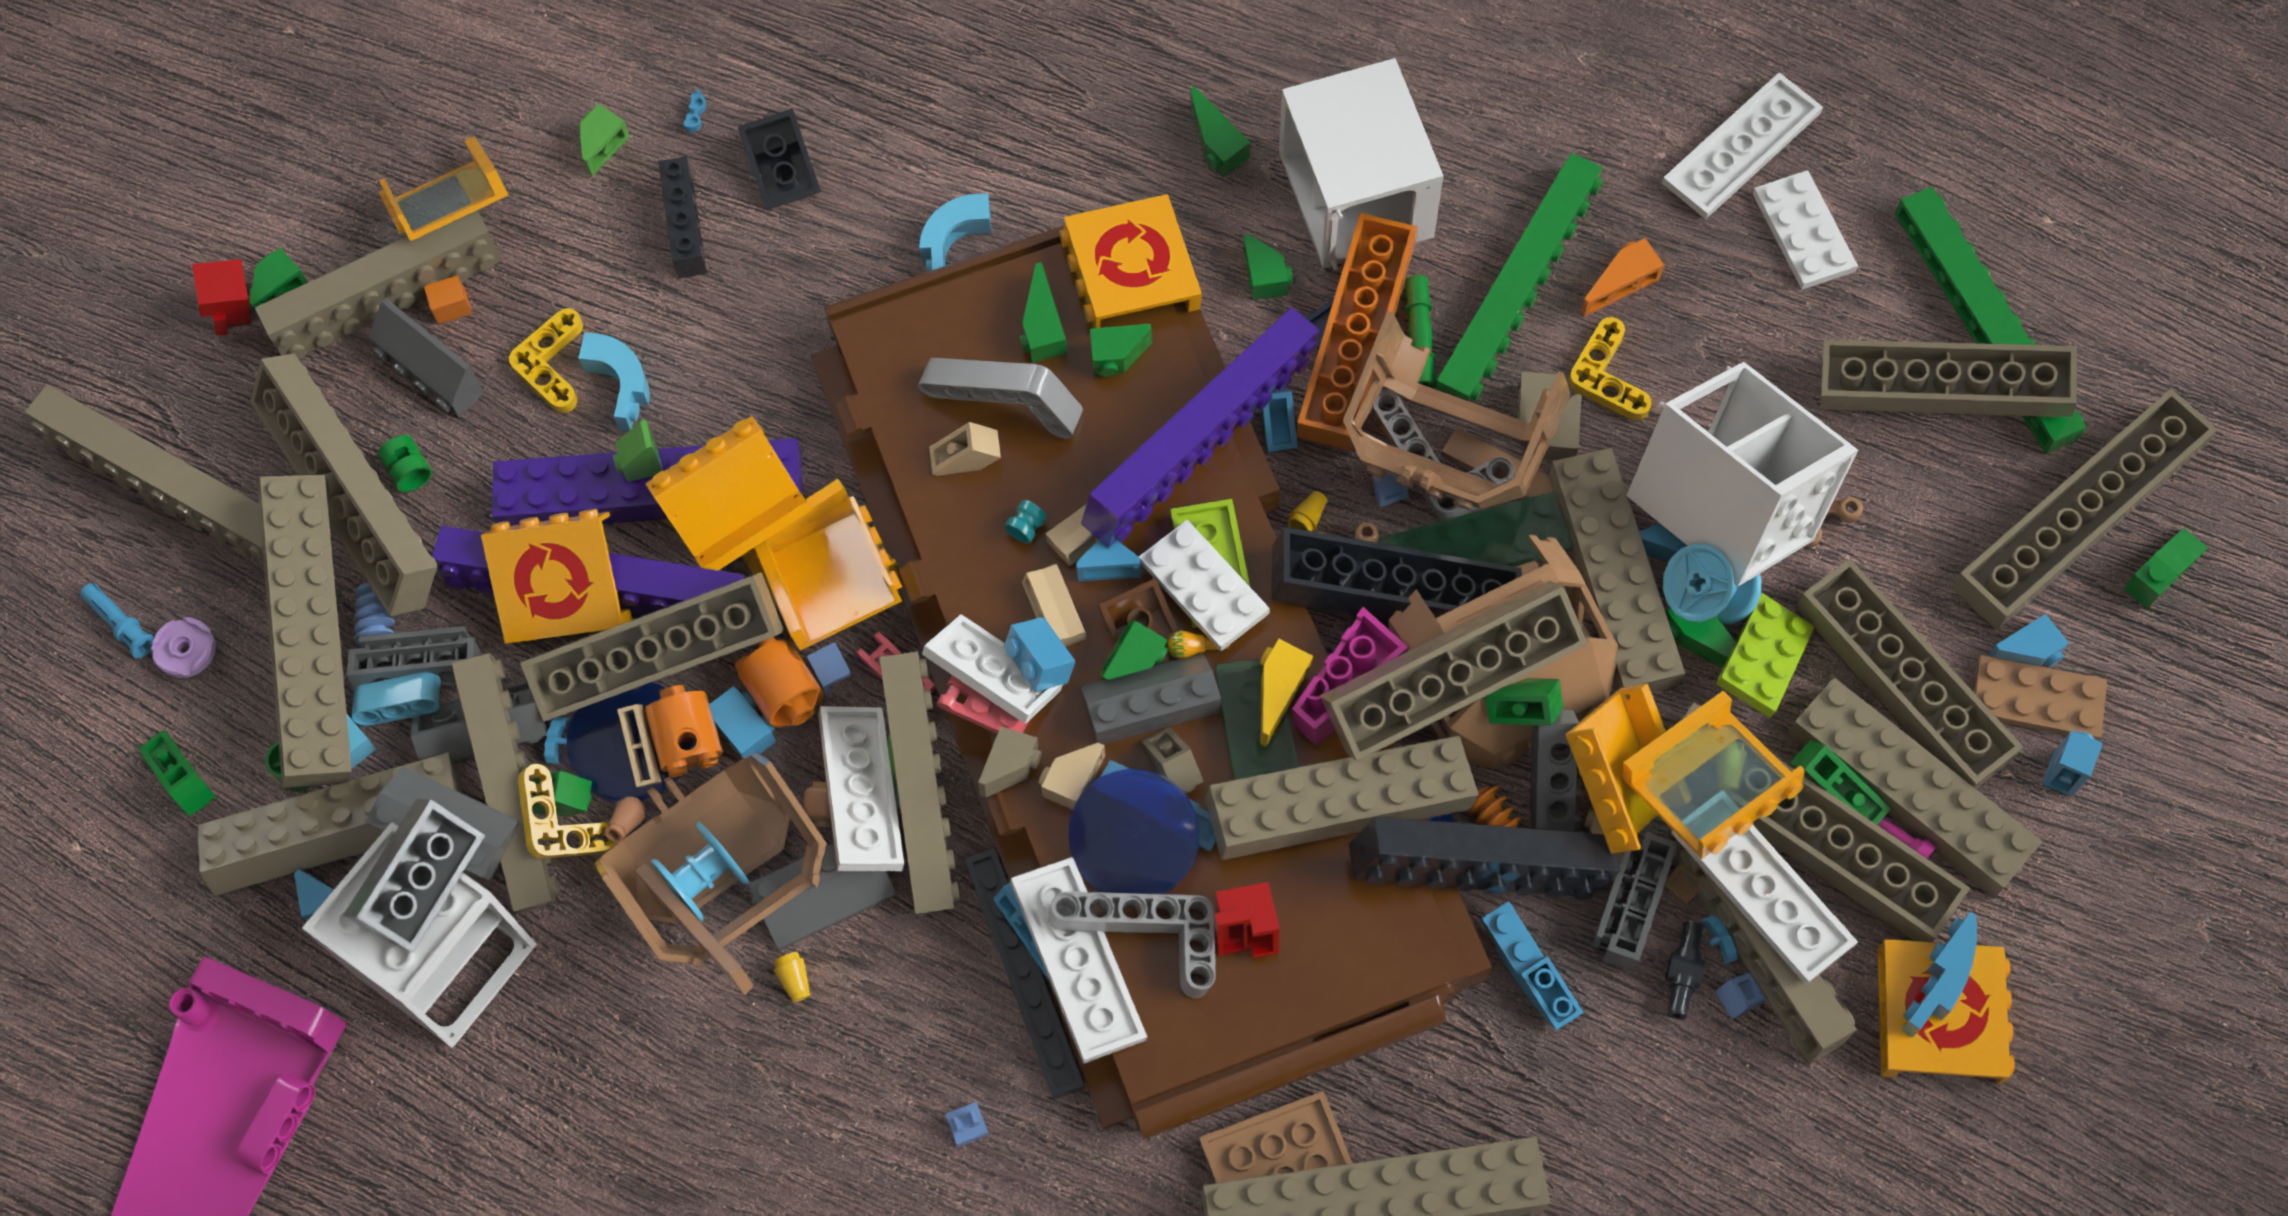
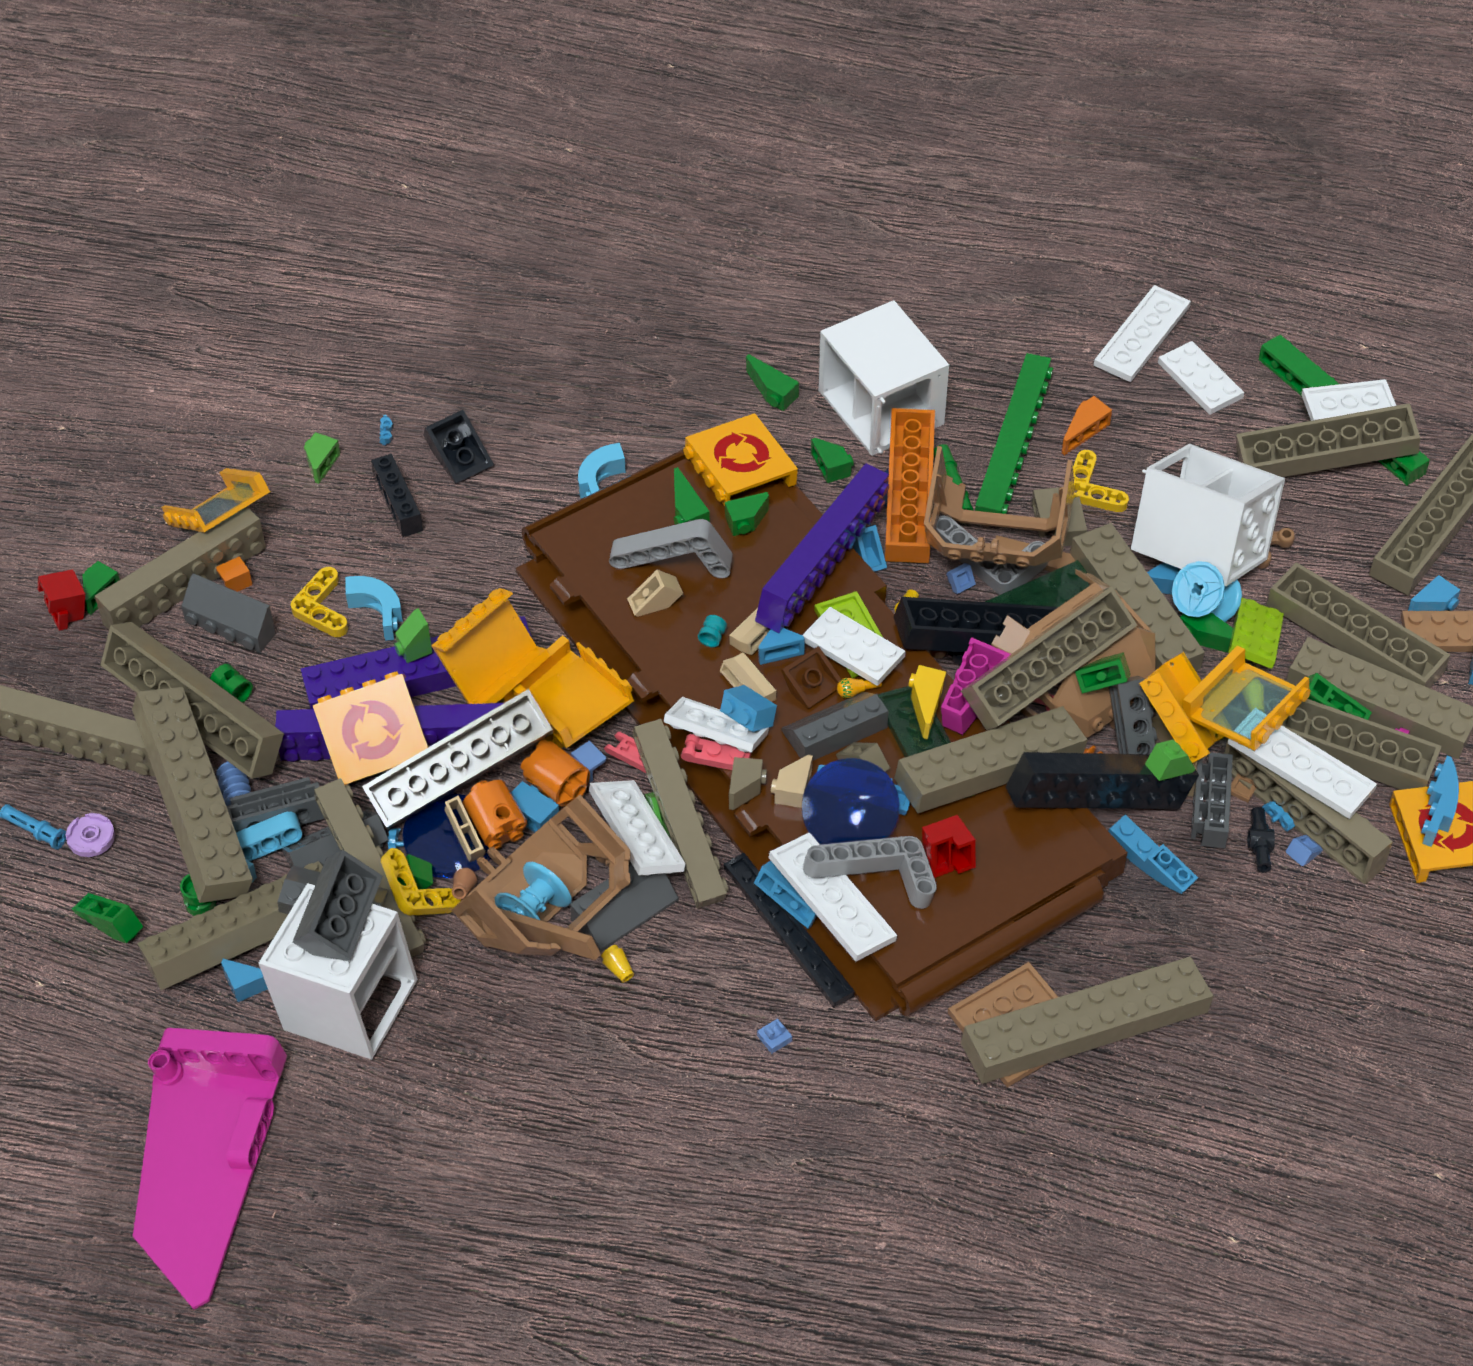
camera: 15 degrees left, 15 degrees down
(1134, 651) = (816, 695): green slope -> none
(1580, 851) = (1169, 761): none -> bright green slope
(1996, 316) = (1346, 398): none -> white plate

